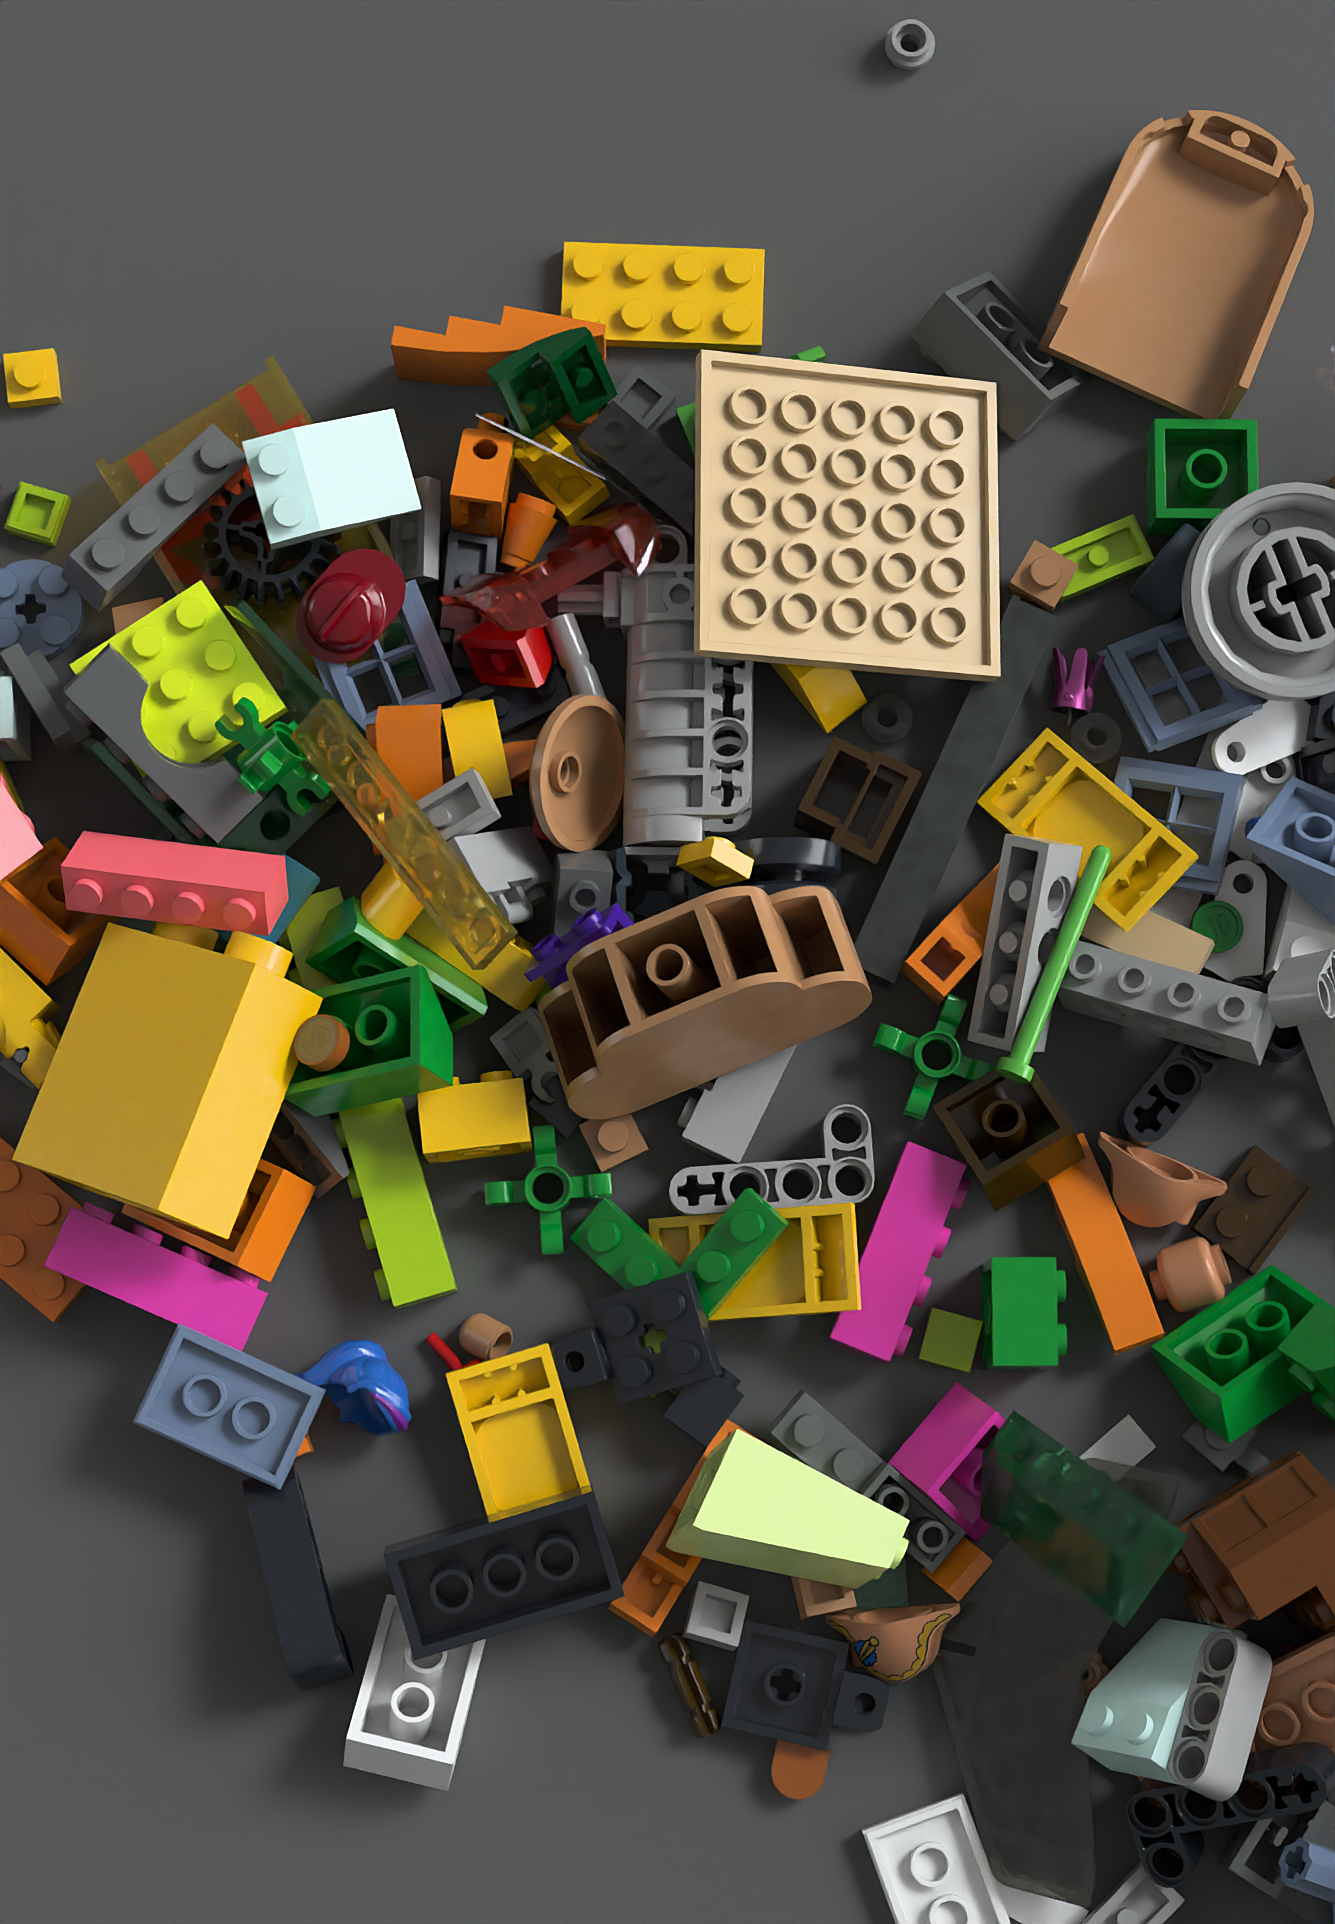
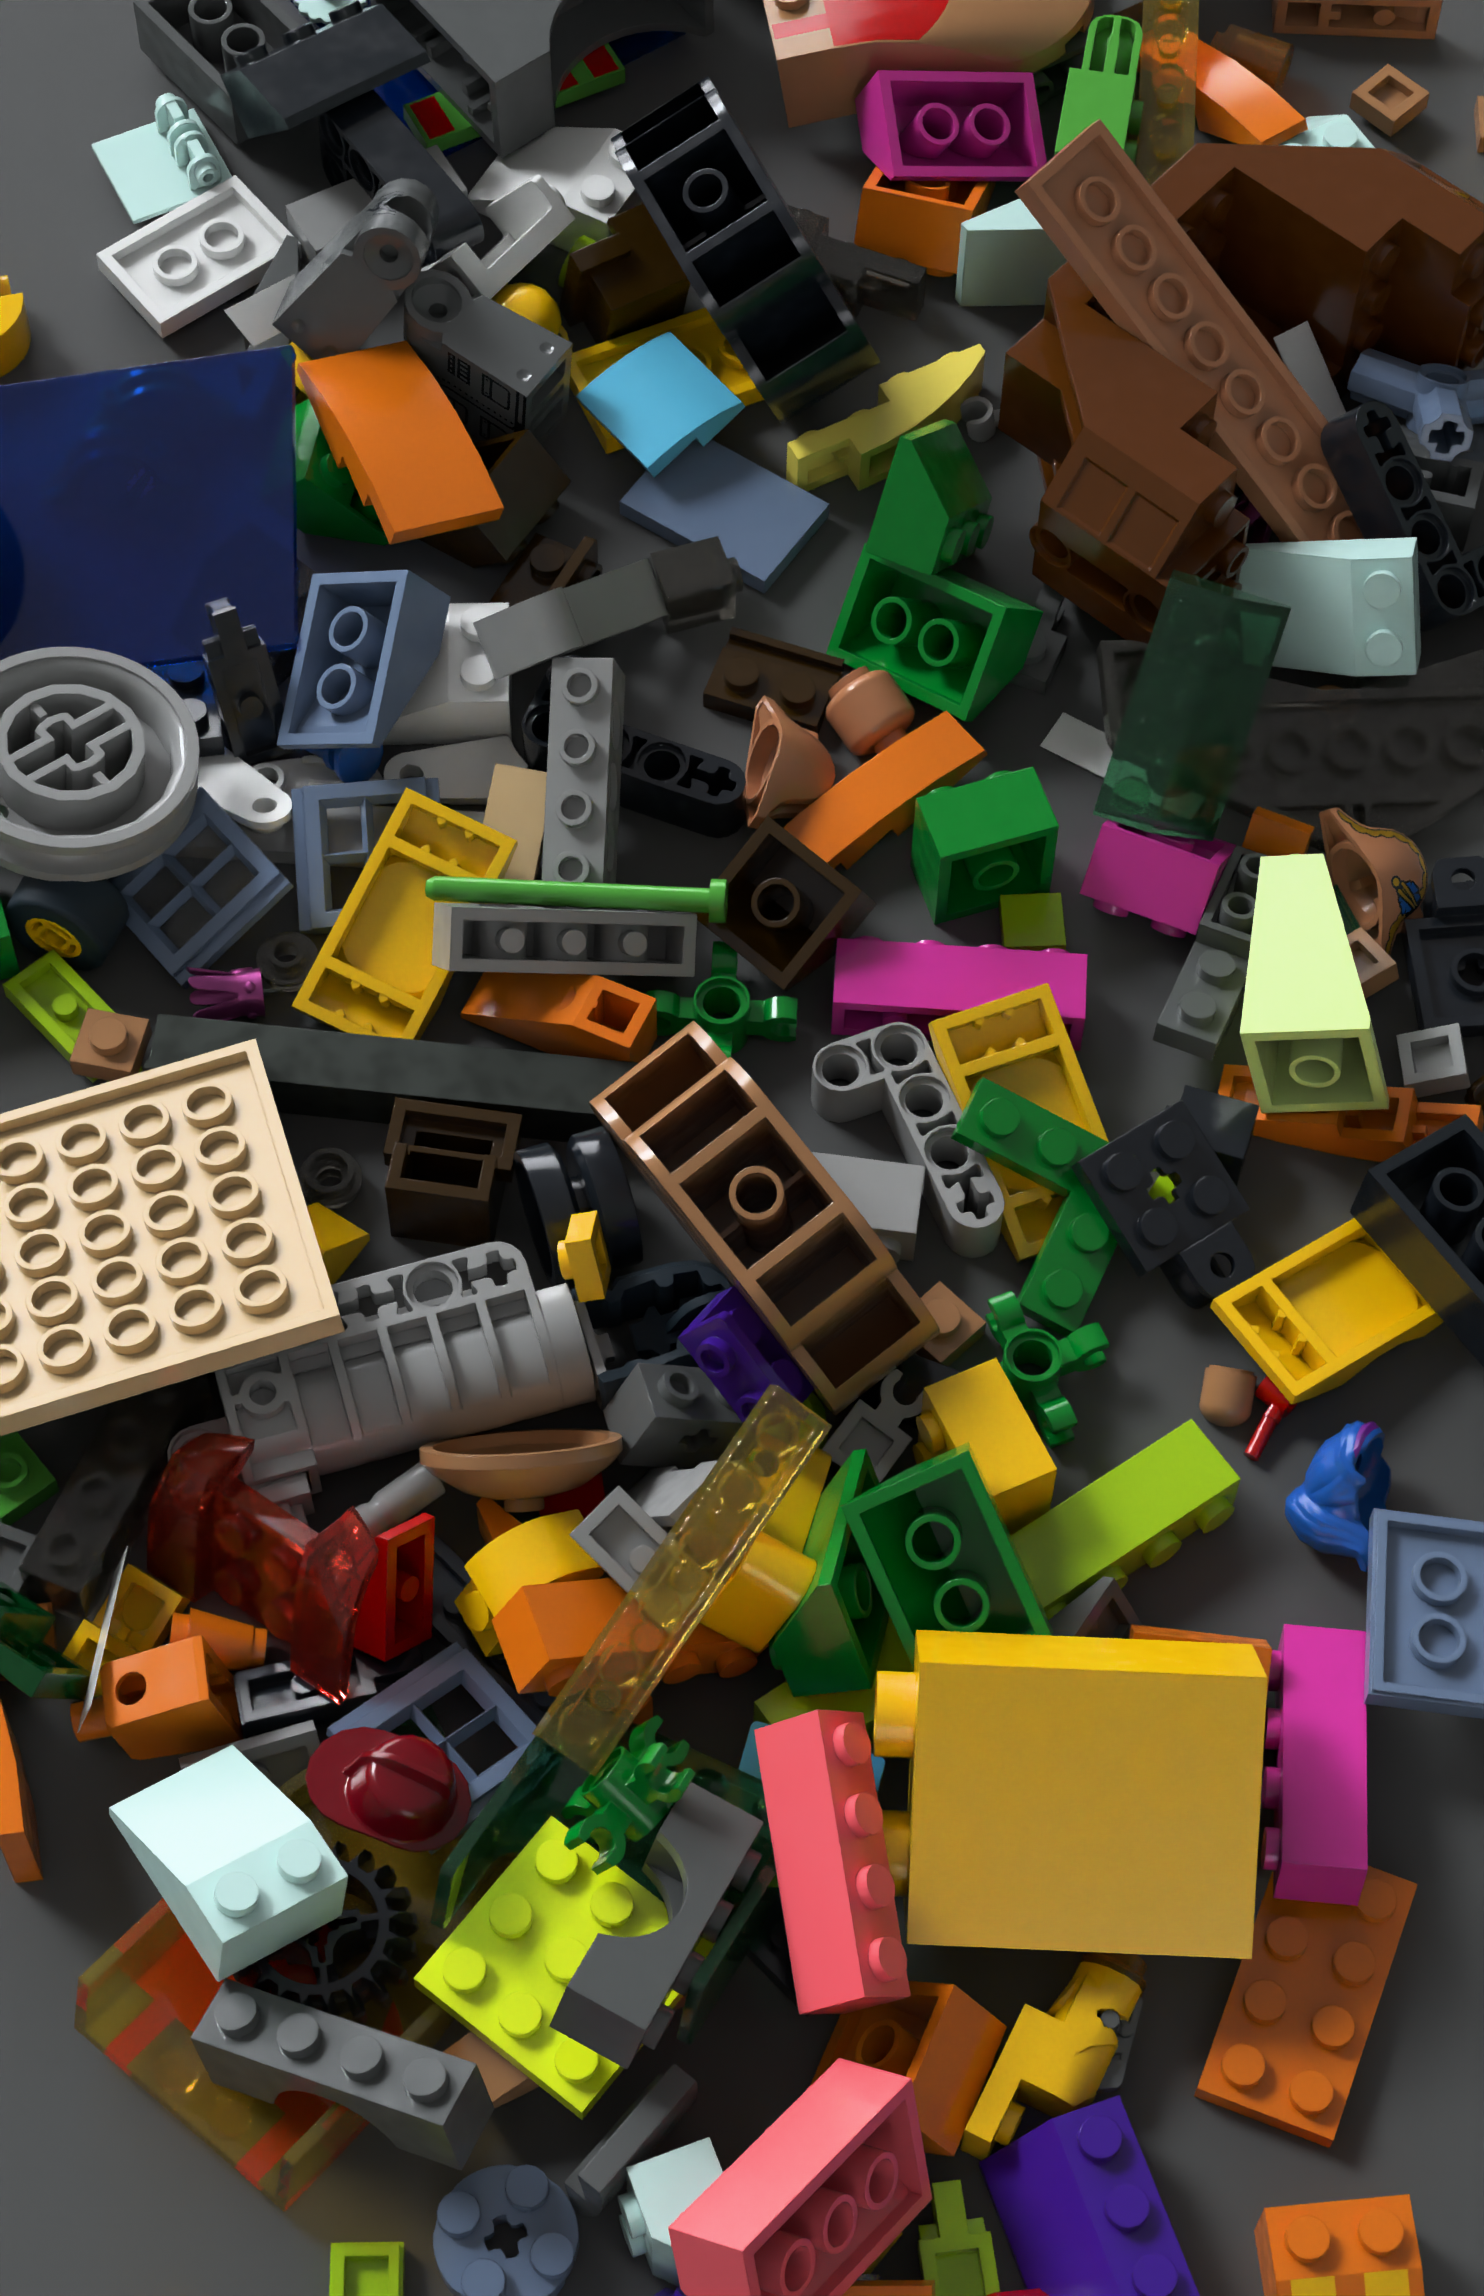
camera: 105 degrees left, 20 degrees down
(321, 1042) = (975, 1599): tile -> none
(1220, 923) = (467, 784): green piece -> none
(1220, 1715) = (1362, 535): light grey beam -> none

